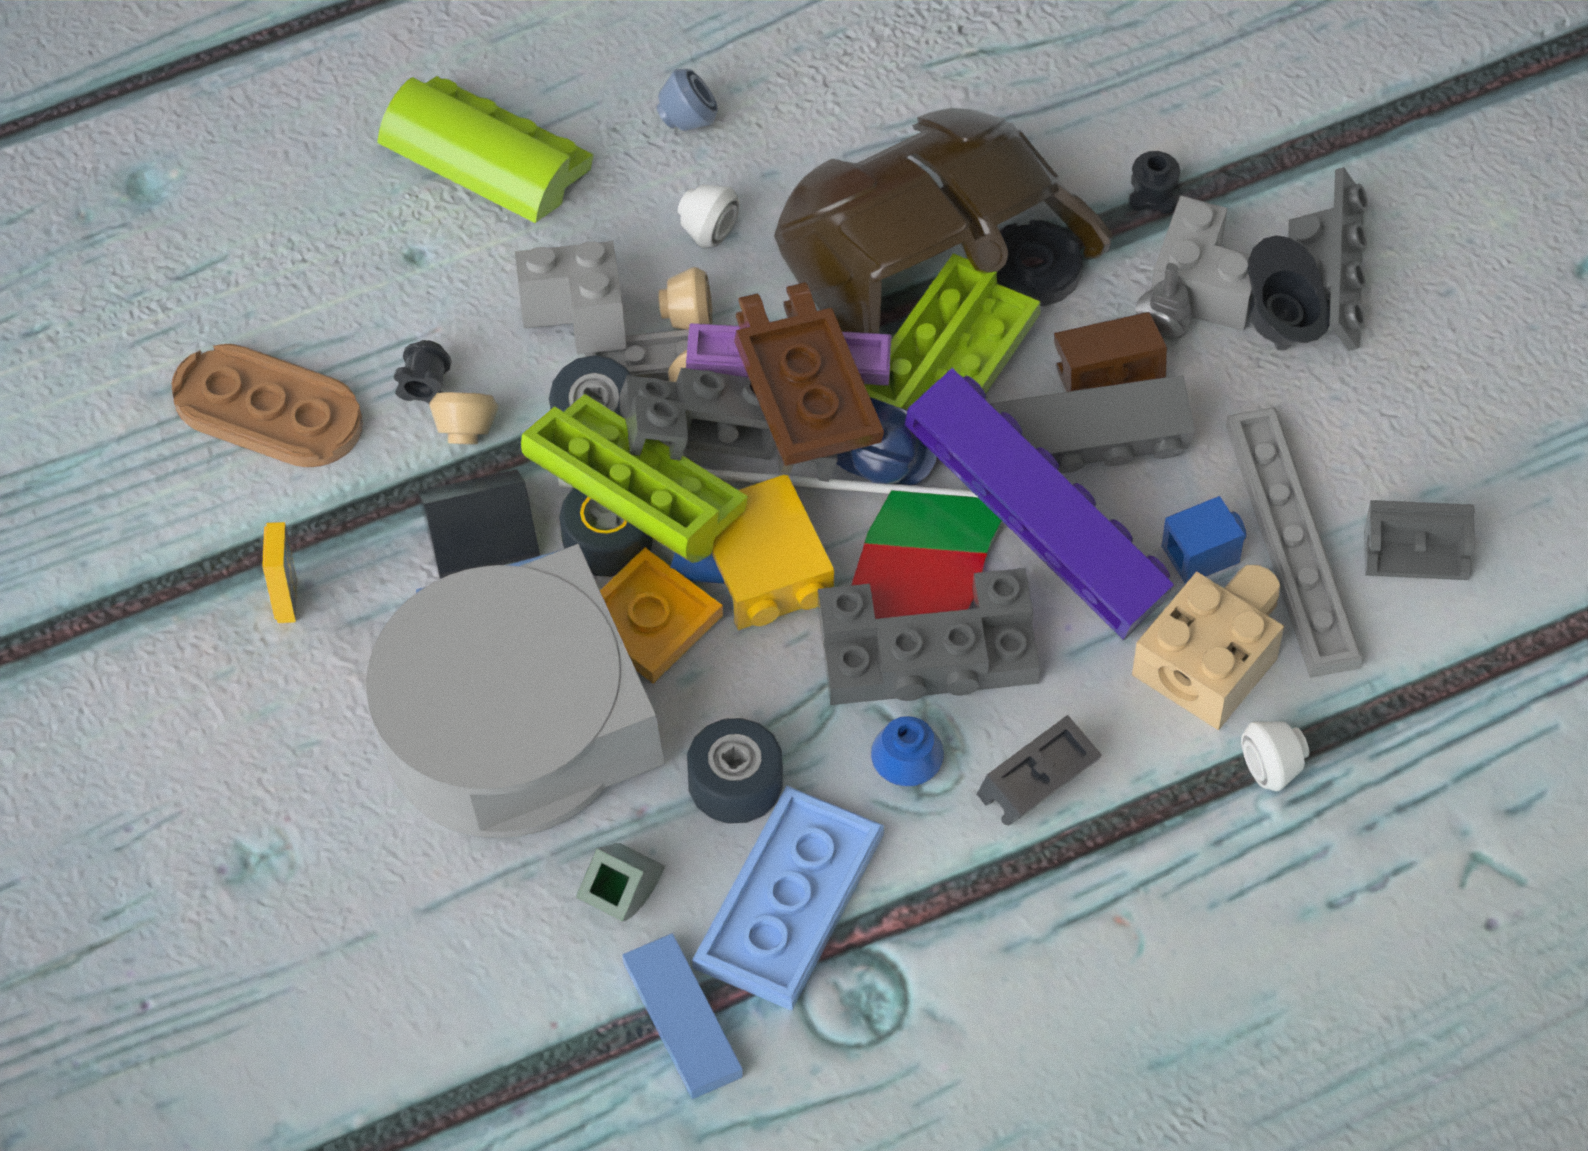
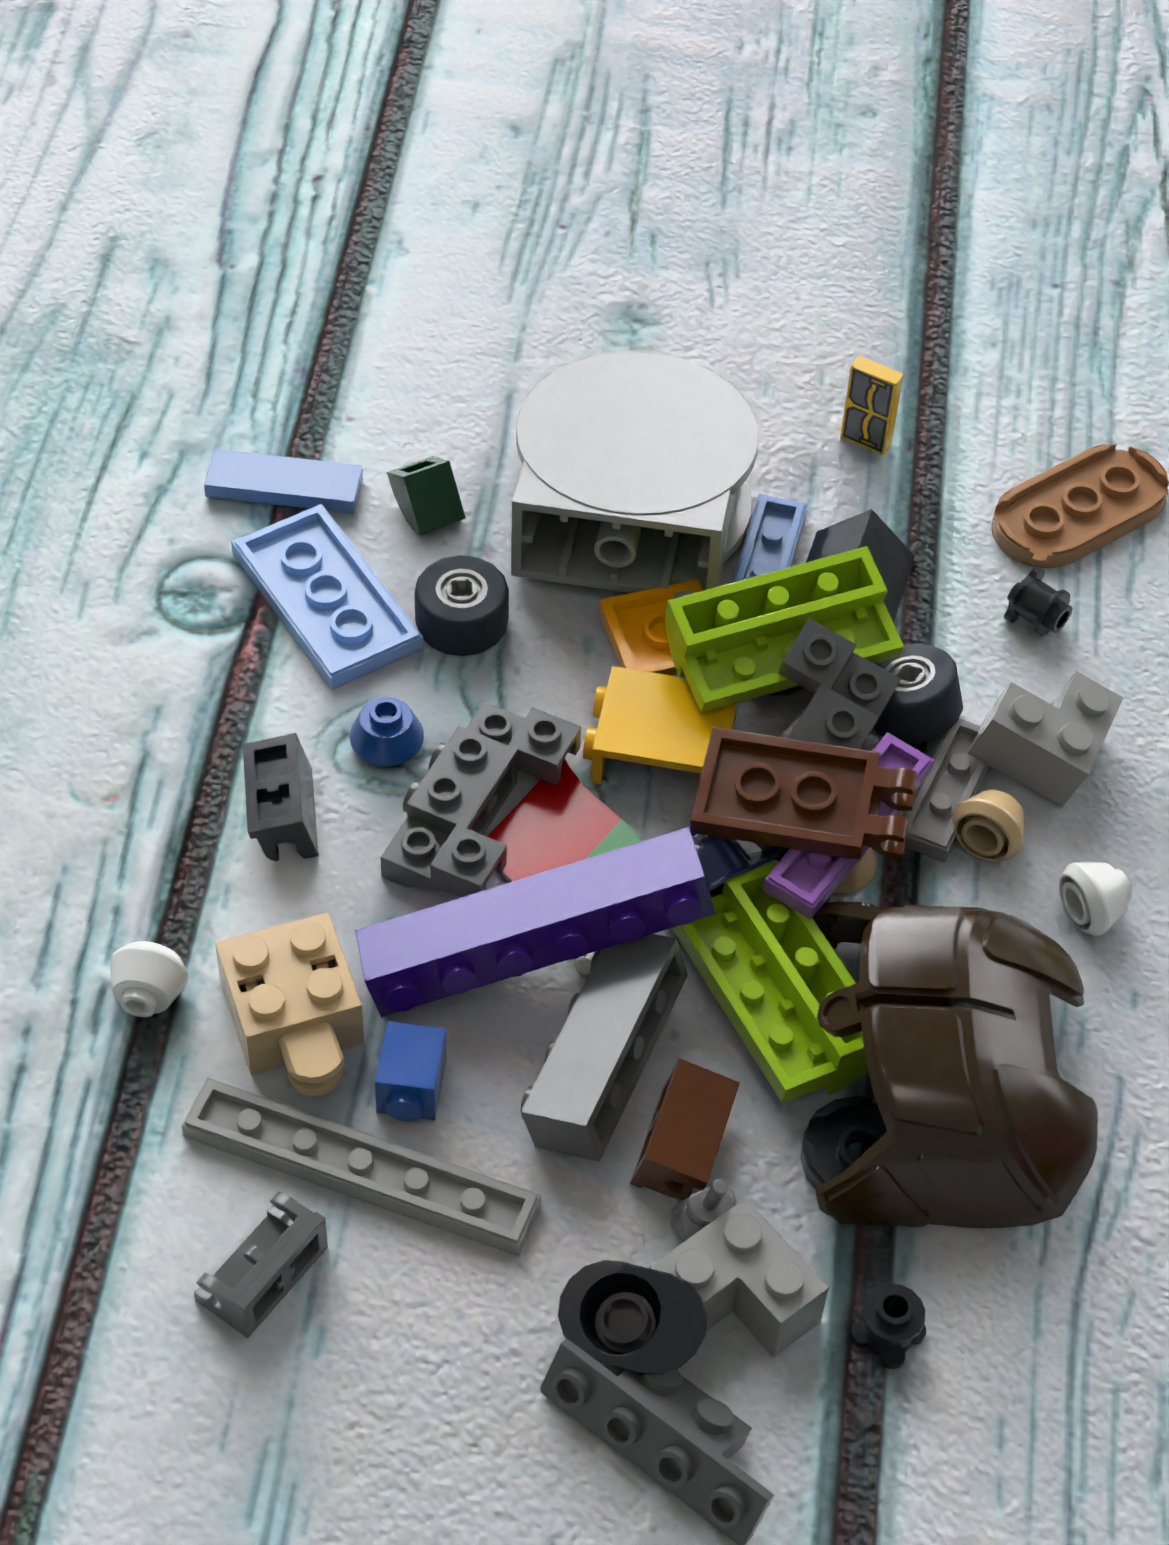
camera: 120 degrees right, 5 degrees down
(463, 415) = (970, 605): tan cone -> none

